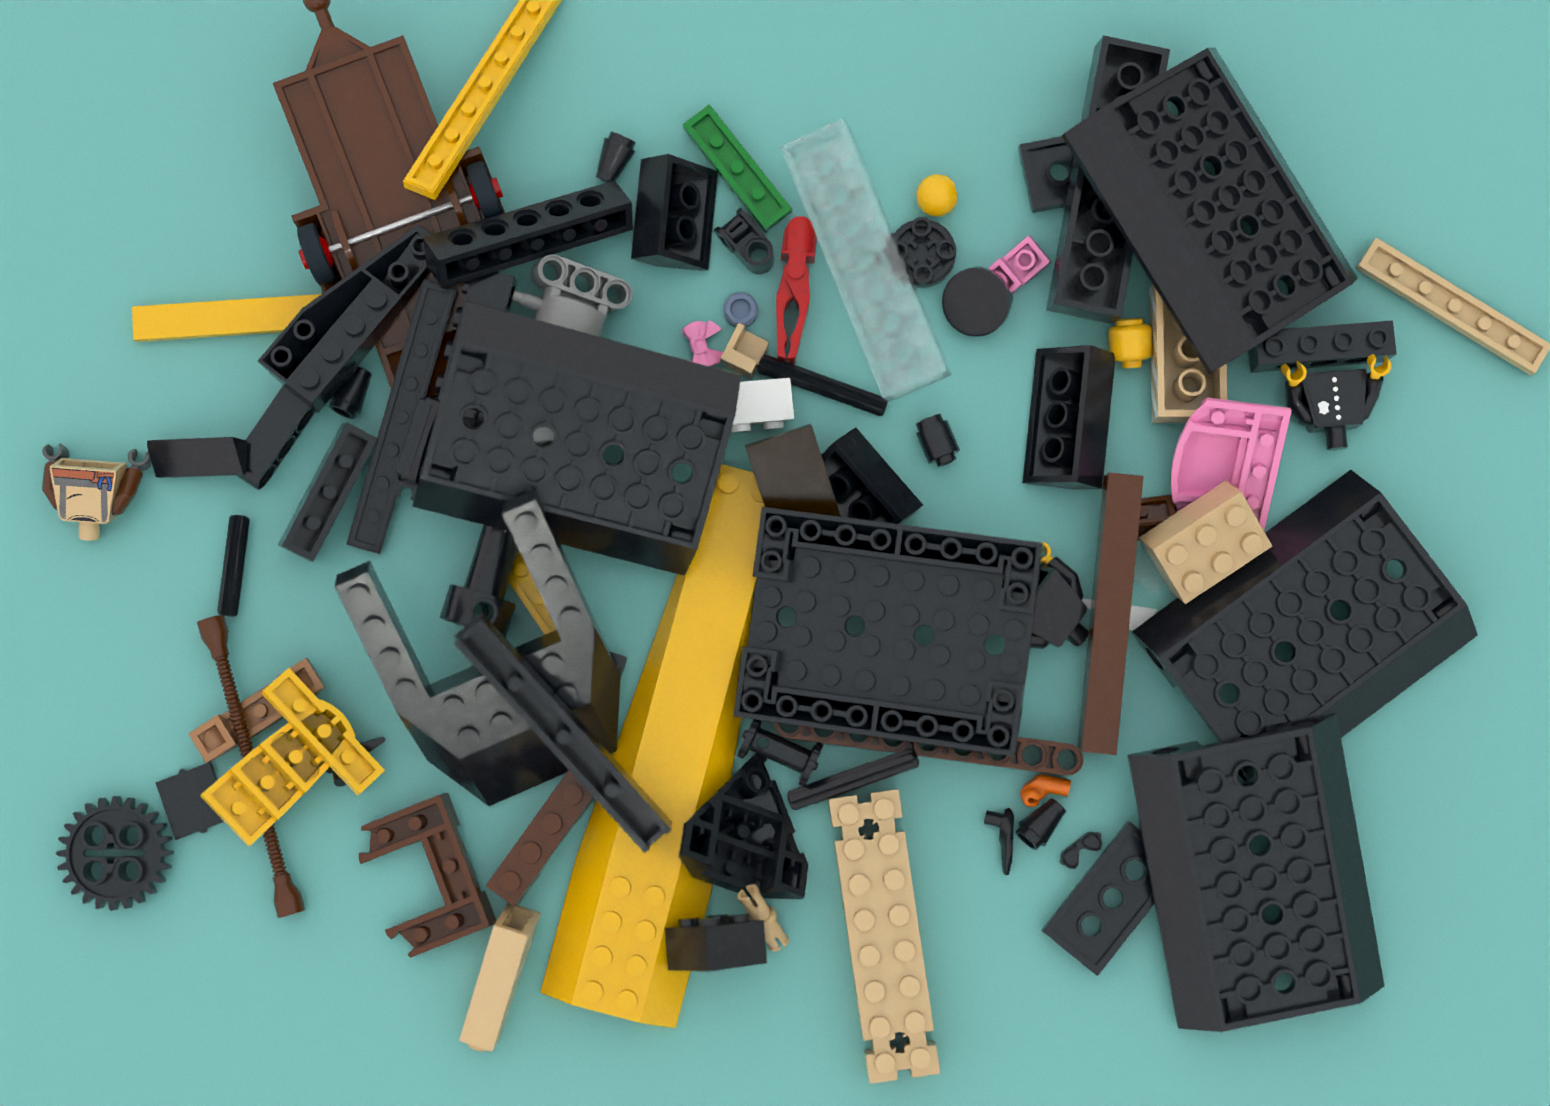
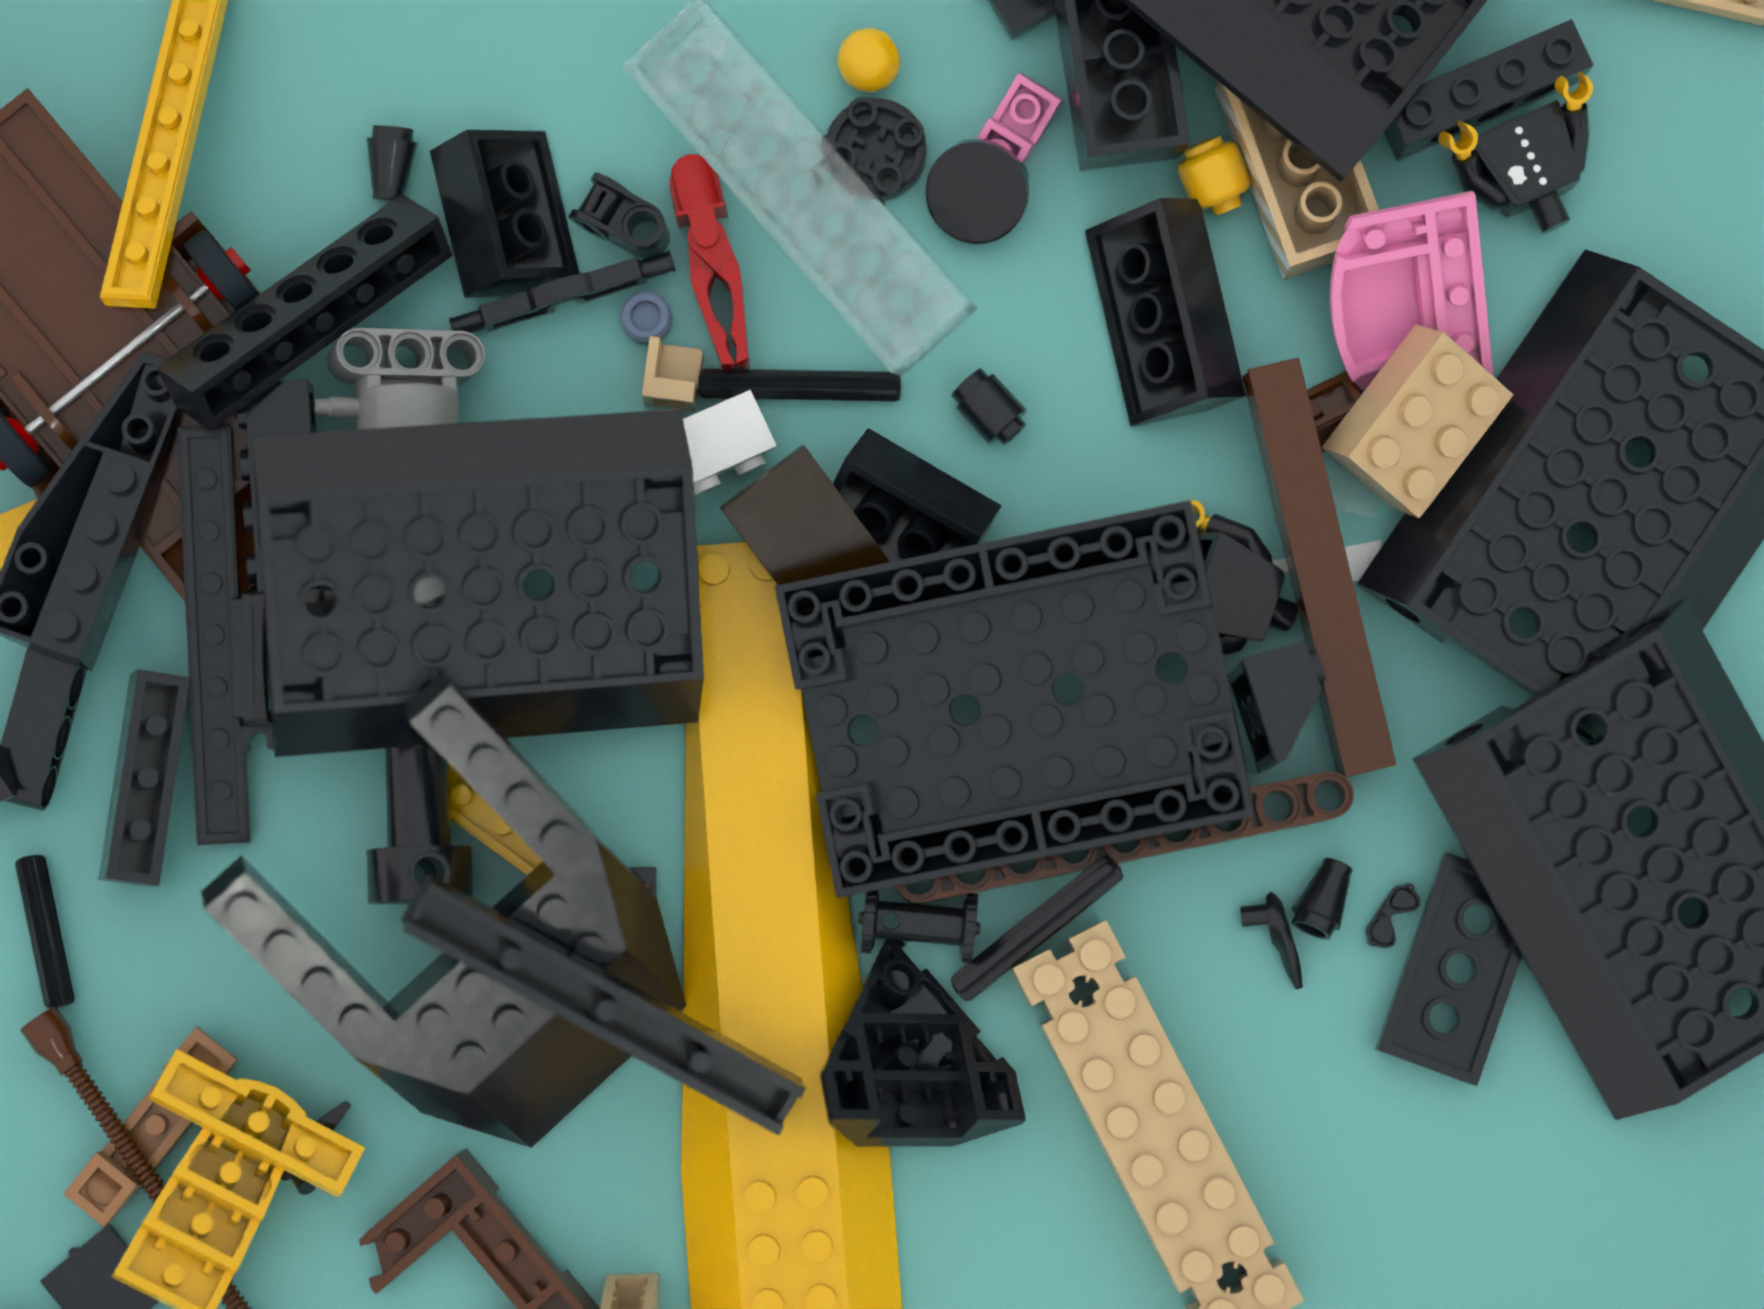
camera: 20 degrees left, 0 degrees up
(352, 393) = (130, 628): black cone -> none
(540, 840) = (623, 1168): reddish brown arch -> none
(696, 334) = (596, 372): bright pink piece -> none
(704, 276) = (577, 287): none -> black piece
(715, 943) = (923, 1228): black brick -> none
(737, 168) = (571, 117): green plate -> none
(759, 910) = (977, 1169): tan pin -> none
(1041, 786) = (1306, 845): orange arm -> none
(1054, 686) = (1275, 699): none -> black slope

